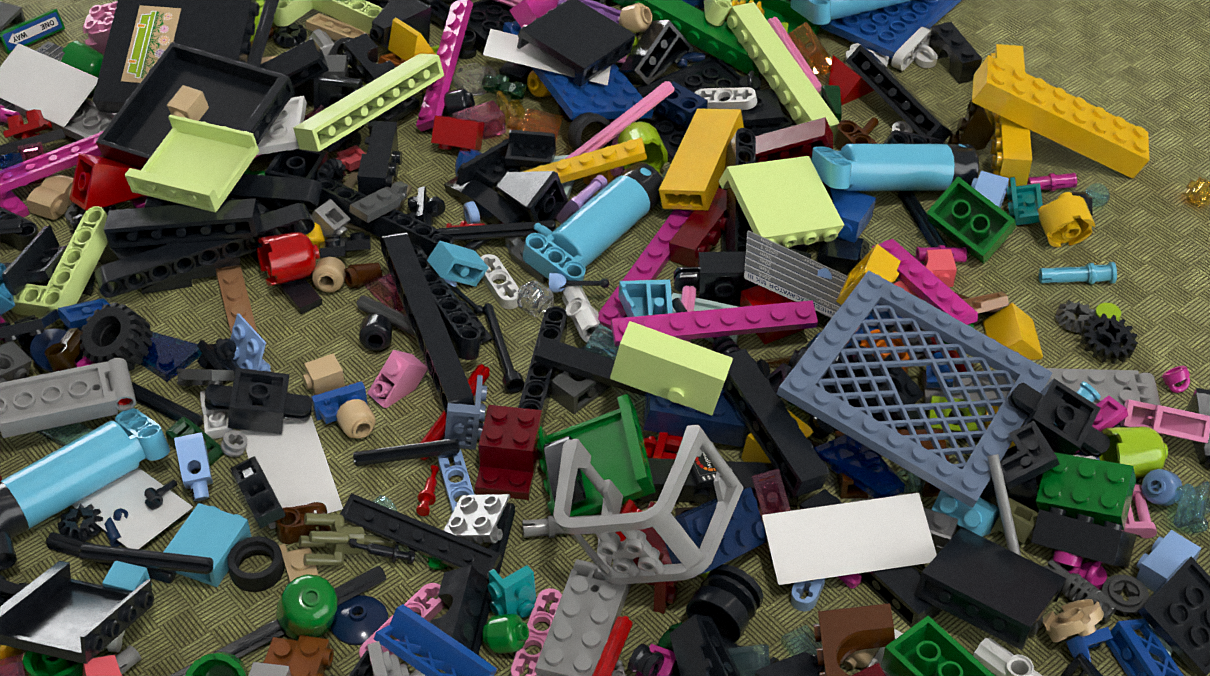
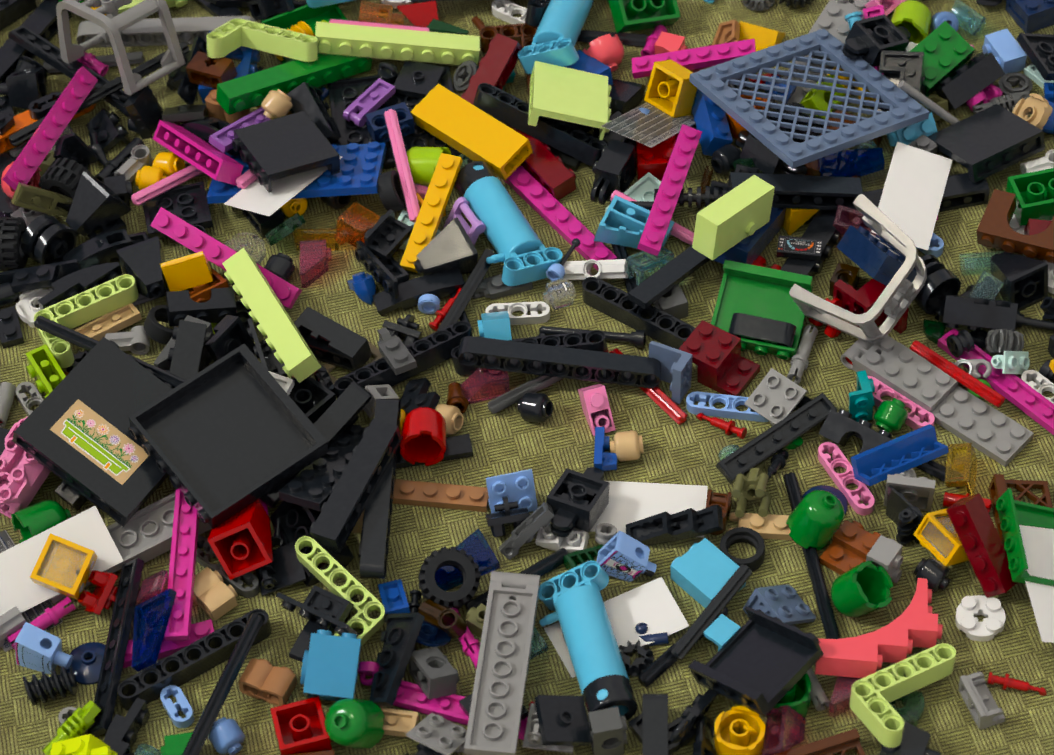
camera: 60 degrees left, 5 degrees up
(29, 87) = (63, 566): none -> piece
(154, 497) = (641, 598): black hand -> none
(186, 625) = (782, 603): none -> sand blue bracket
(188, 103) = (230, 428): tan brick -> none
(195, 164) = (306, 446): yellowish green panel -> none
(323, 374) = (564, 453): tan brick -> none
(406, 452) = (681, 424): black axle -> none
(457, 133) = (324, 279): red brick -> none
(697, 81) = (369, 102): none -> medium lavender plate
(713, 96) = (403, 84): white beam -> none
(887, 219) = (607, 50): none -> coral cylinder

